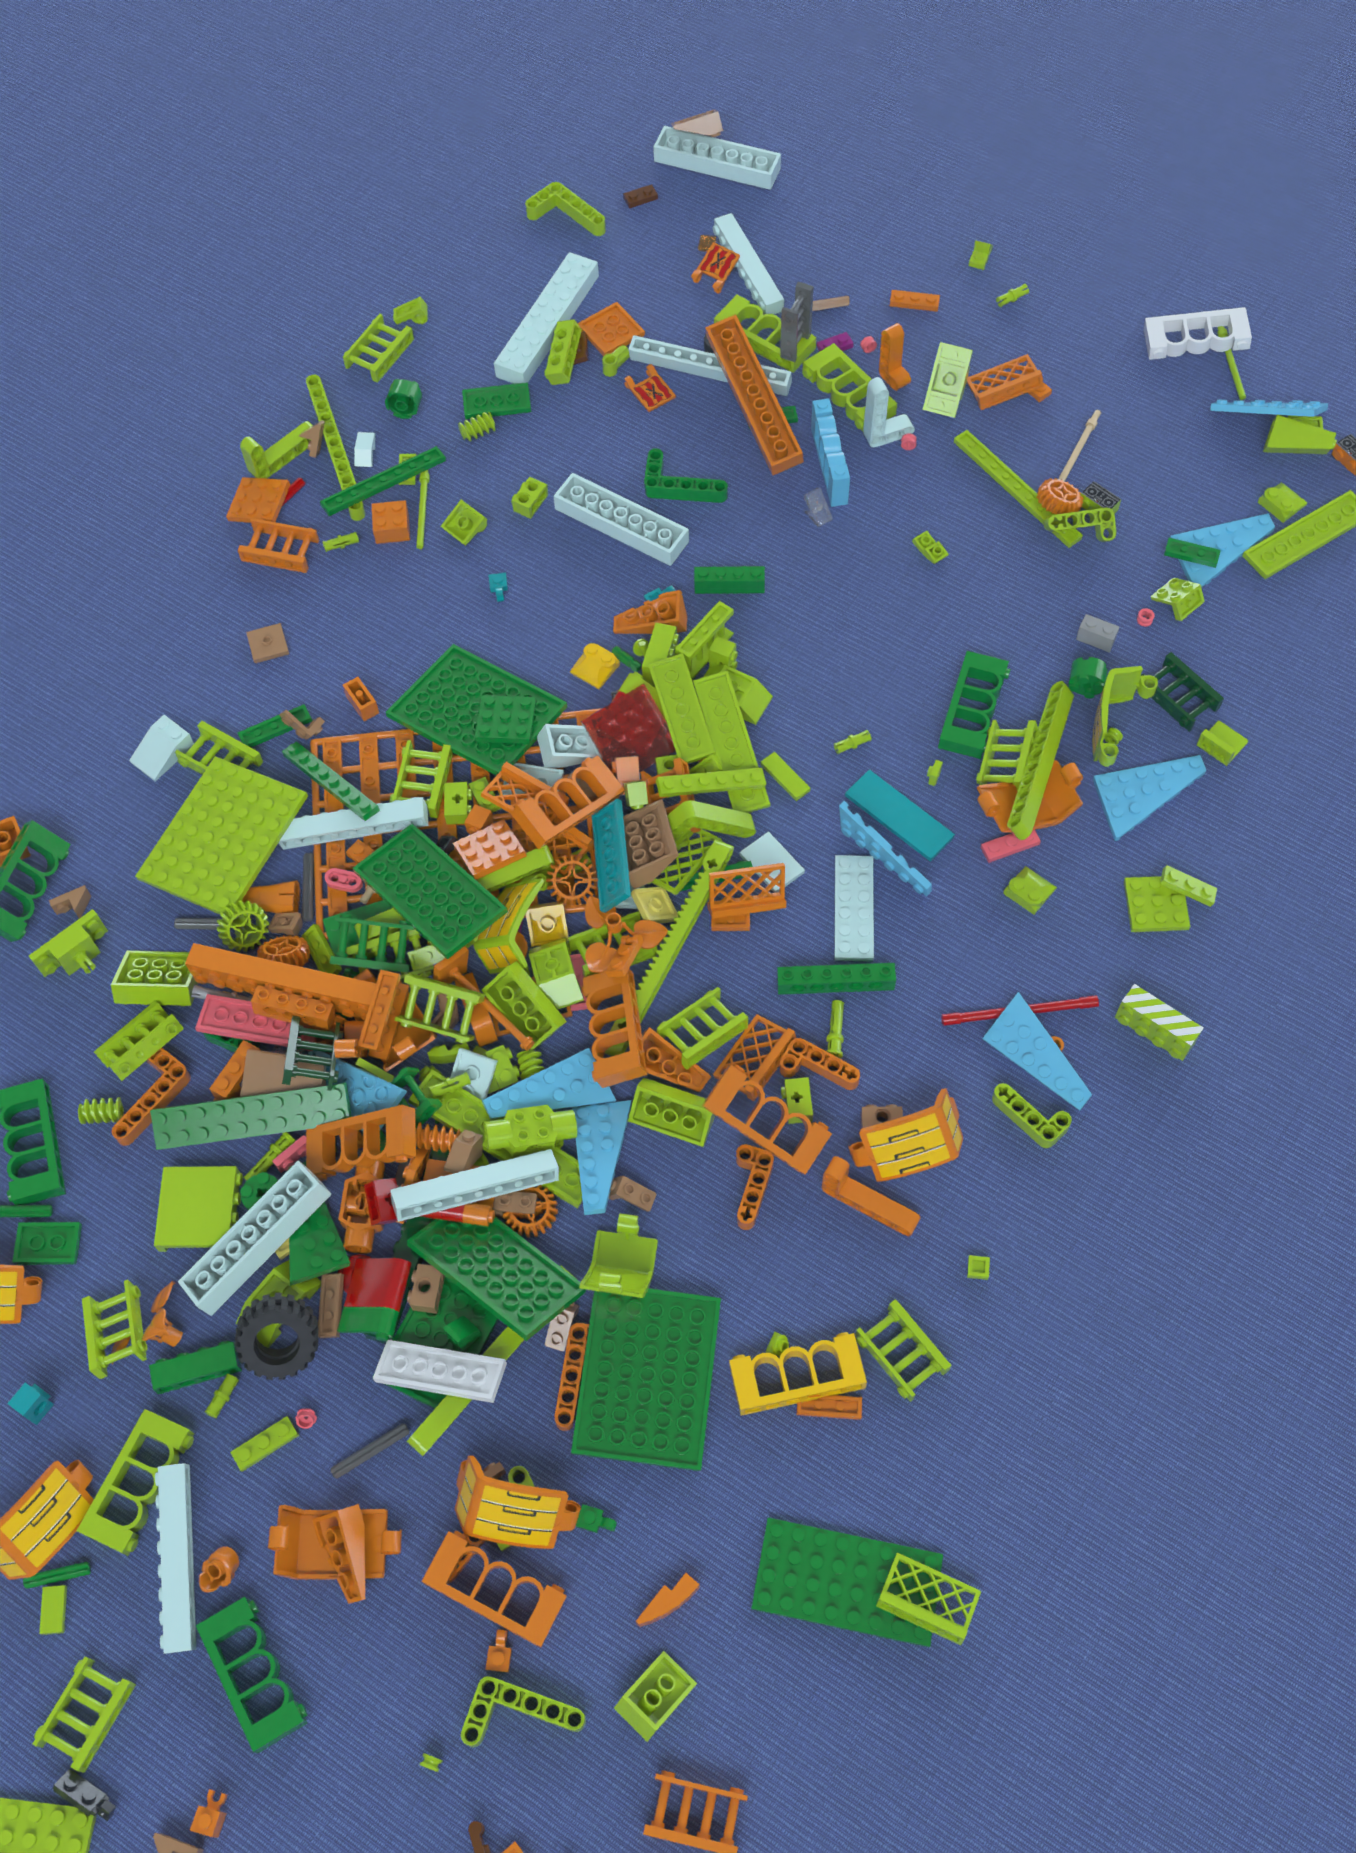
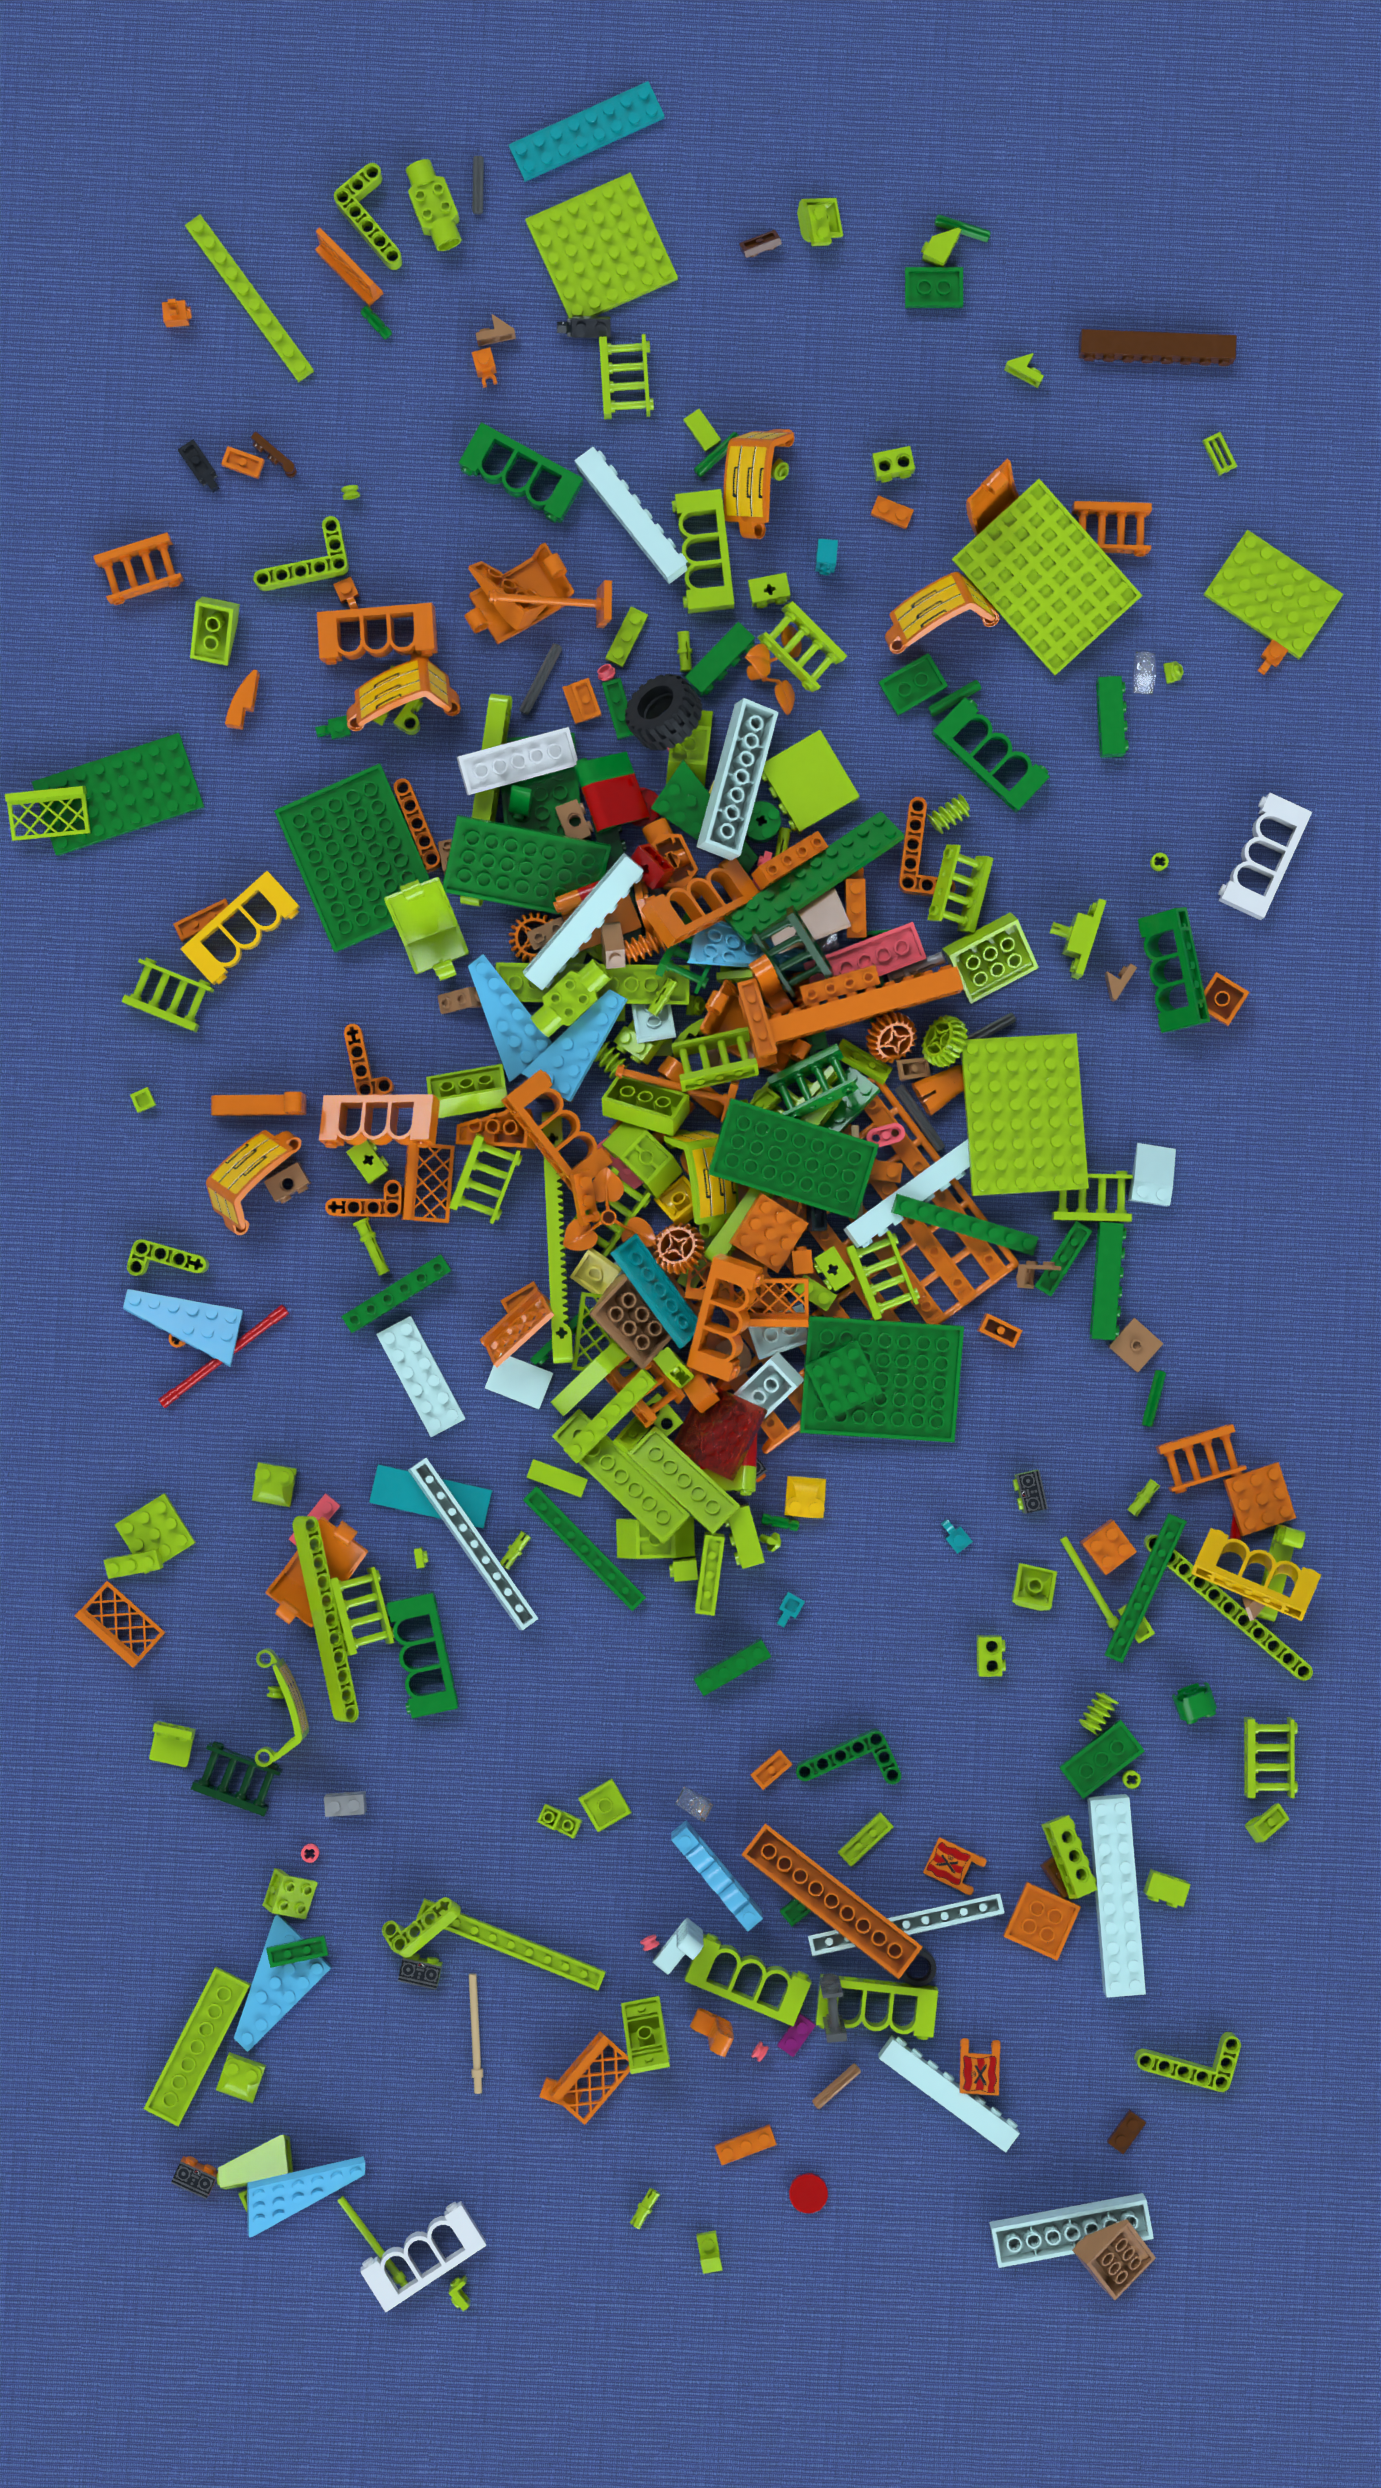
camera: 135 degrees right, 25 degrees up
(94, 1402) = (777, 583): none -> lime brick
(218, 1569) = (595, 526): orange head -> none
(255, 692) = (1106, 1281): none -> green brick
(261, 1143) = (789, 860): none -> orange brick
(264, 1482) = (602, 603): none -> orange tile
(267, 421) = (1218, 1543): none -> yellow fence
(282, 601) = (1153, 1399): none -> green axle
(317, 1377) = (617, 706): none -> green plate
(330, 1305) = (646, 768): medium nougat tile -> none
(346, 1404) = (582, 701): none -> orange plate
(364, 449) = (1195, 1620): light aqua slope -> none
(420, 584) = (1030, 1491): none -> brick
(484, 377) = (1125, 1779): none -> lime bush
(494, 1470) = (433, 716): medium nougat plate -> none
(509, 308) = (1166, 1888): none -> lime brick
(613, 361) = (1010, 1882): lime piece -> none
(621, 519) = (880, 1678): light aqua brick -> none
(666, 609) = (776, 1586): orange wedge -> none
(703, 433) = (865, 1839): none -> lime tile
(705, 242) = (1012, 2103): clear orange tile -> none
(744, 504) = (771, 1769): none -> orange plate
(777, 1344) = (270, 944): lime plate -> none
(795, 716) = (584, 1548): none -> green plate
(879, 848) = (426, 1442): medium azure wing -> none
(884, 758) = (473, 1544): none -> light aqua brick
(887, 256) = (808, 2193): none -> red tile
(888, 542) = (605, 1805): none -> lime tile
(1059, 497) = (457, 1956): orange gear -> none
(1088, 676) = (328, 1741): green brick -> none
(1137, 792) = (225, 1645): medium azure wing -> none
(1158, 1022) = (94, 1405): lime brick -> none
(1182, 303) = (458, 2296): none -> lime bracket
(1240, 844) = (107, 1636): none -> orange fence

